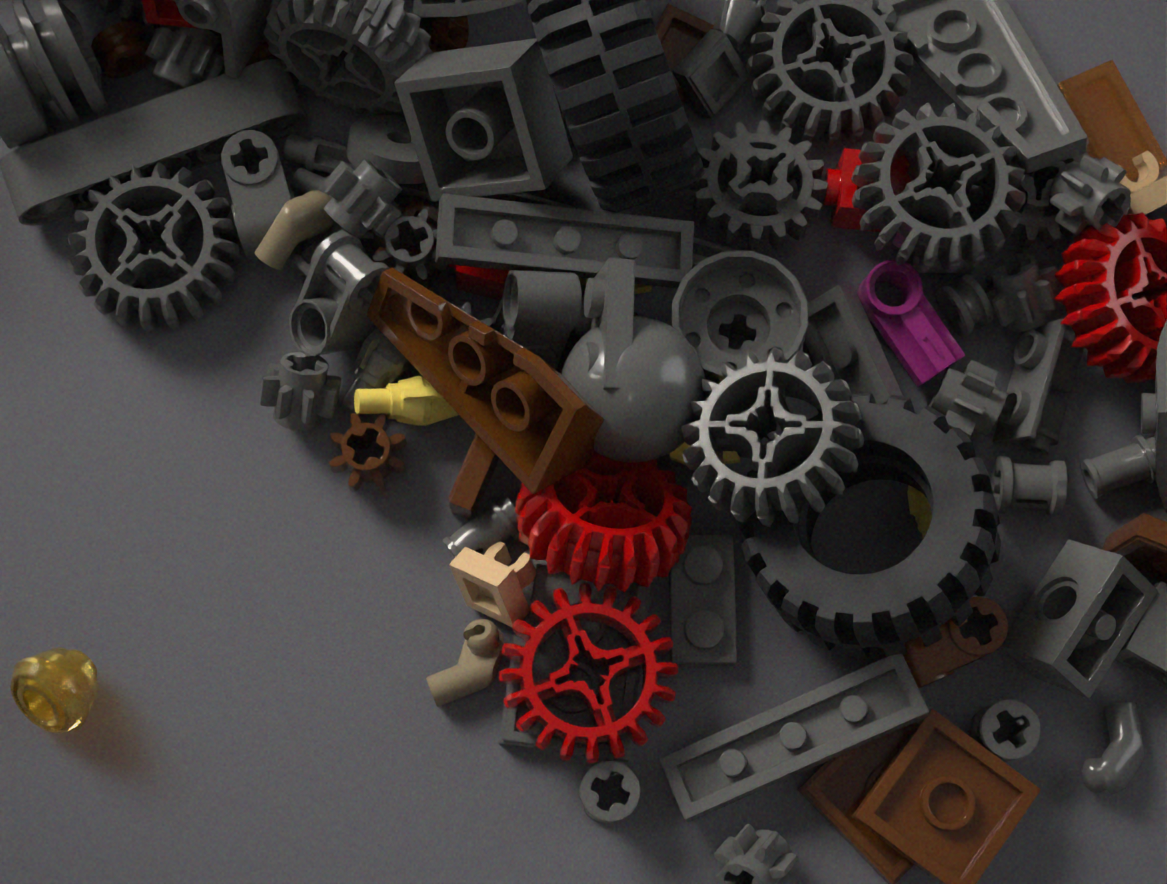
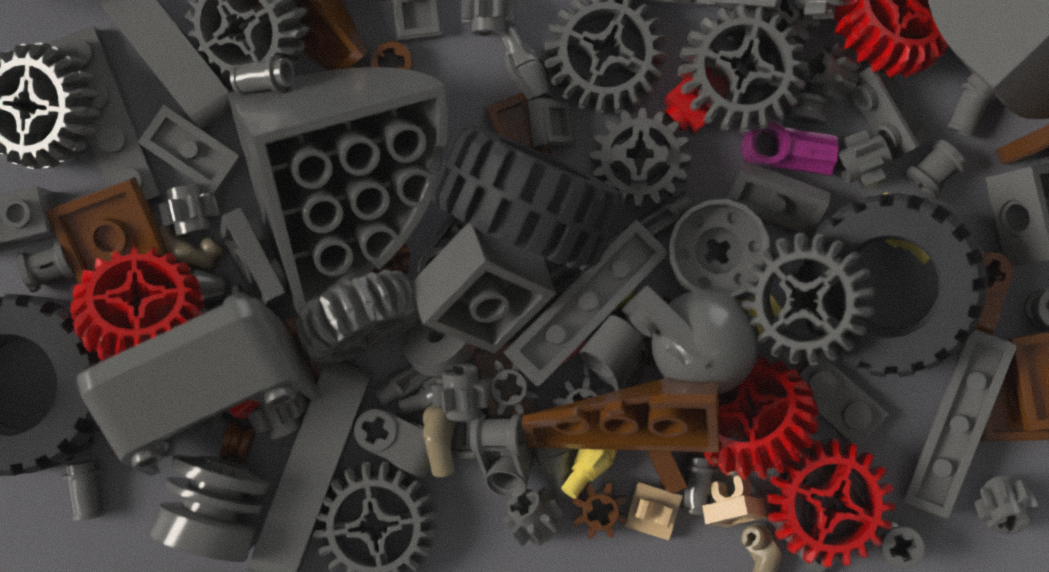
camera: 45 degrees left, 10 degrees up
(416, 512) = (652, 510): none -> tan tile

